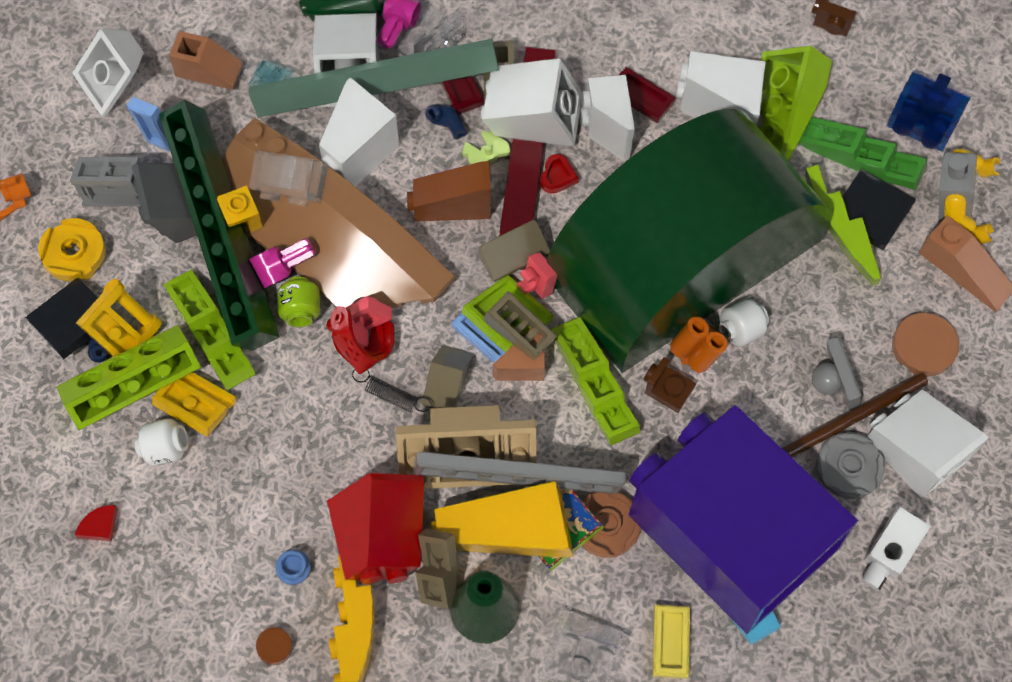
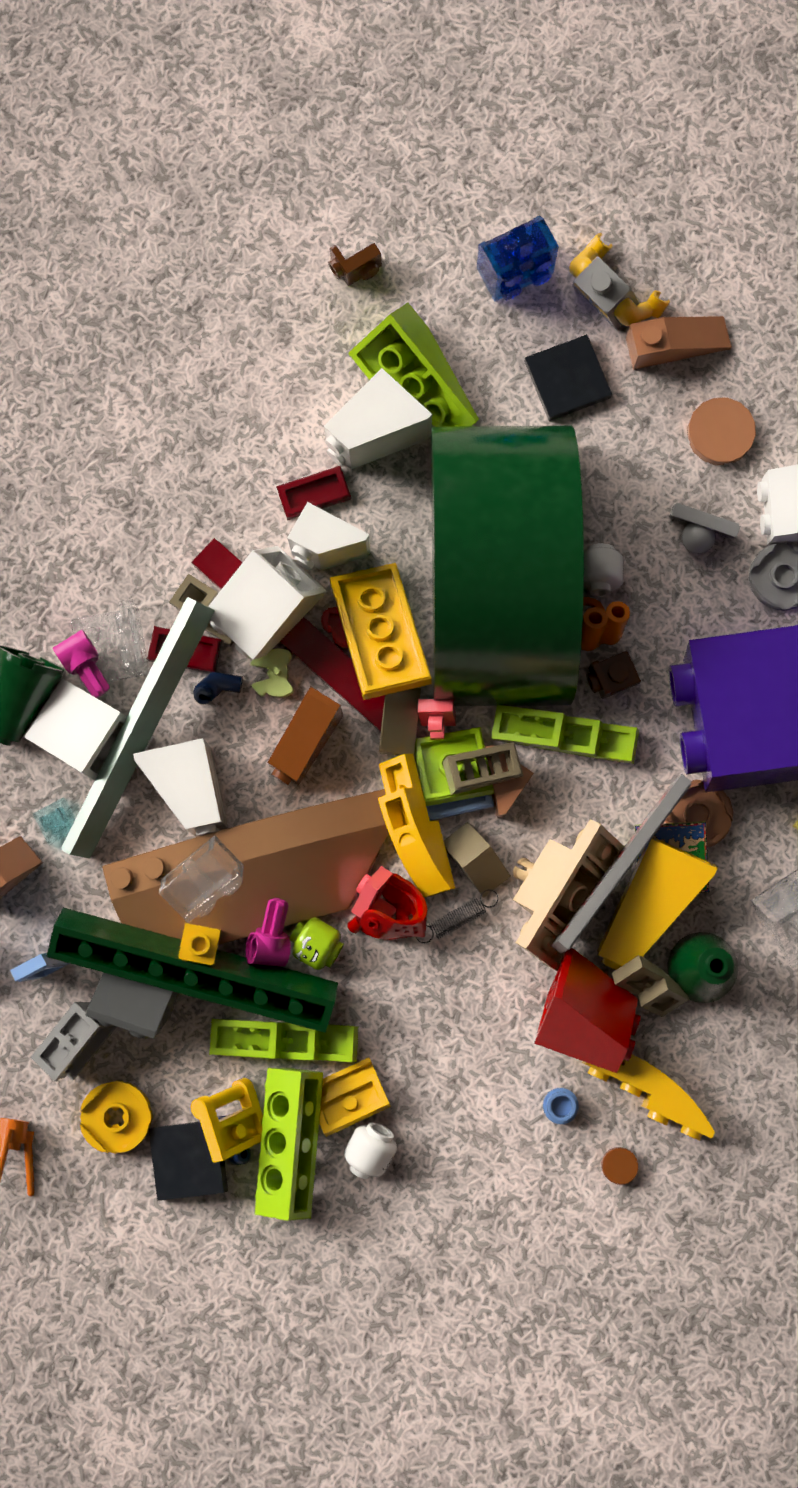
camera: 50 degrees left, 15 degrees up
(98, 524) = (407, 1251): red tile -> none
(430, 318) = (411, 831): none -> yellow slope
(561, 191) = (380, 631): none -> yellow tile
(849, 235) = (585, 417): lime slope -> none
(853, 149) = (511, 343): bright green slope -> none
(855, 415) = (743, 538): reddish brown piece -> none

